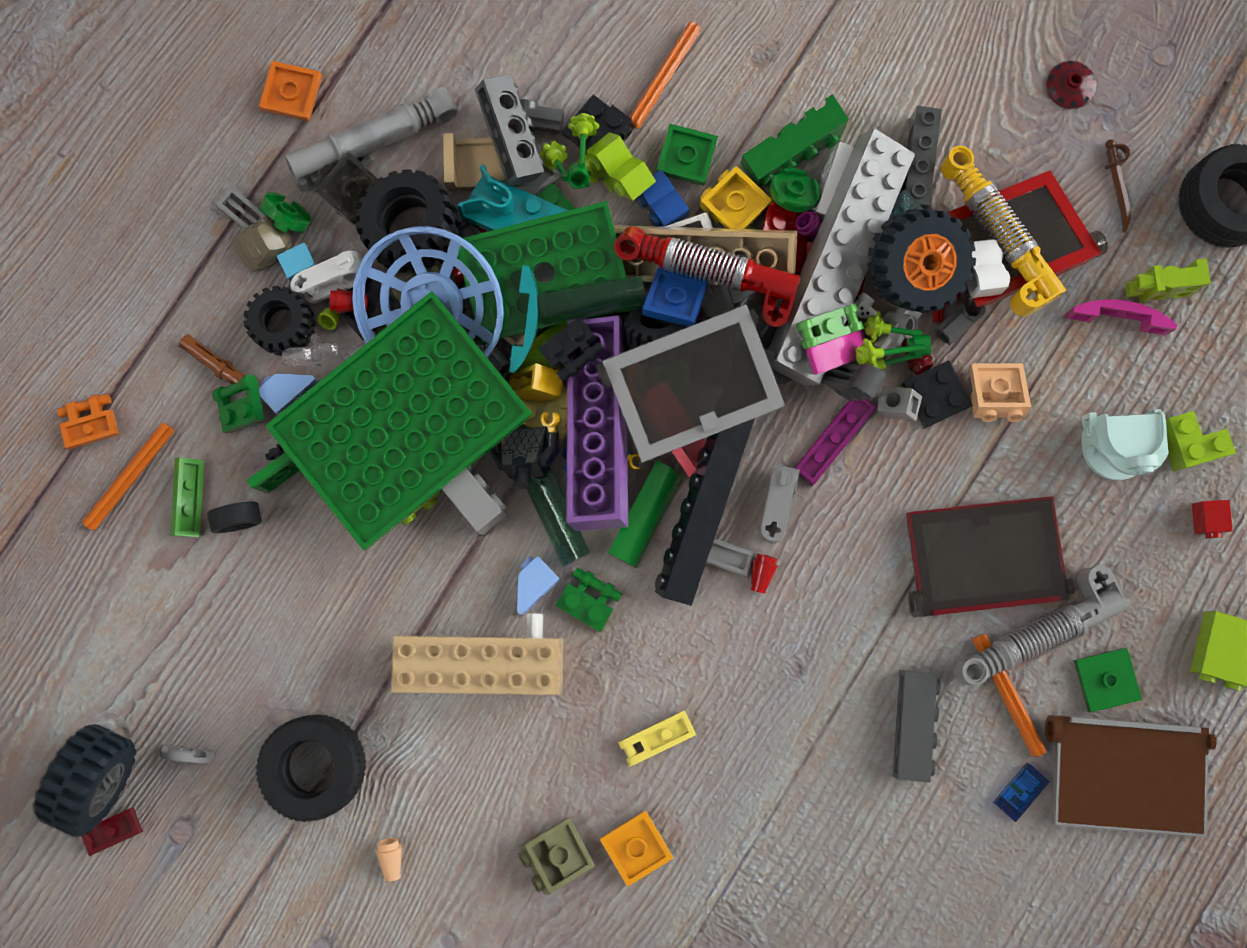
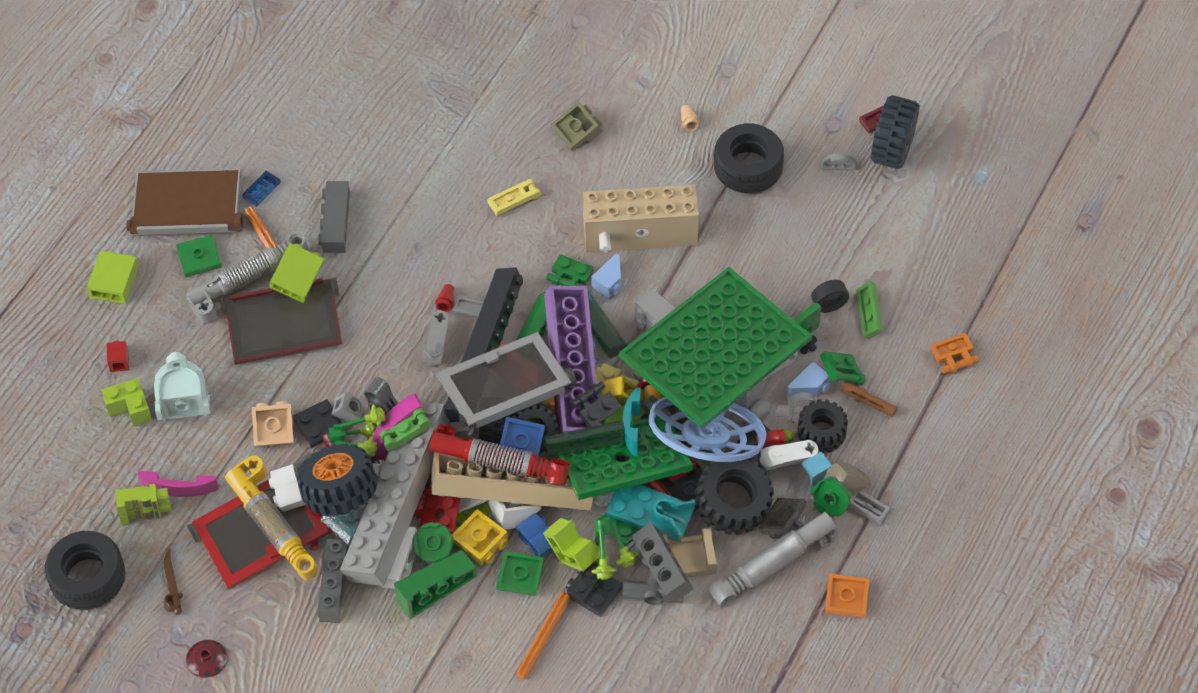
camera: 175 degrees right, 25 degrees down
(128, 476) = (916, 322): orange axle -> none
(528, 451) = (616, 342): torso -> none
(636, 848) = (523, 136): light orange plate -> none
(808, 224) = (420, 518): magenta cone -> none
(834, 439) = (404, 378): magenta tile -> none
(974, 615) = (296, 272): none -> lime brick

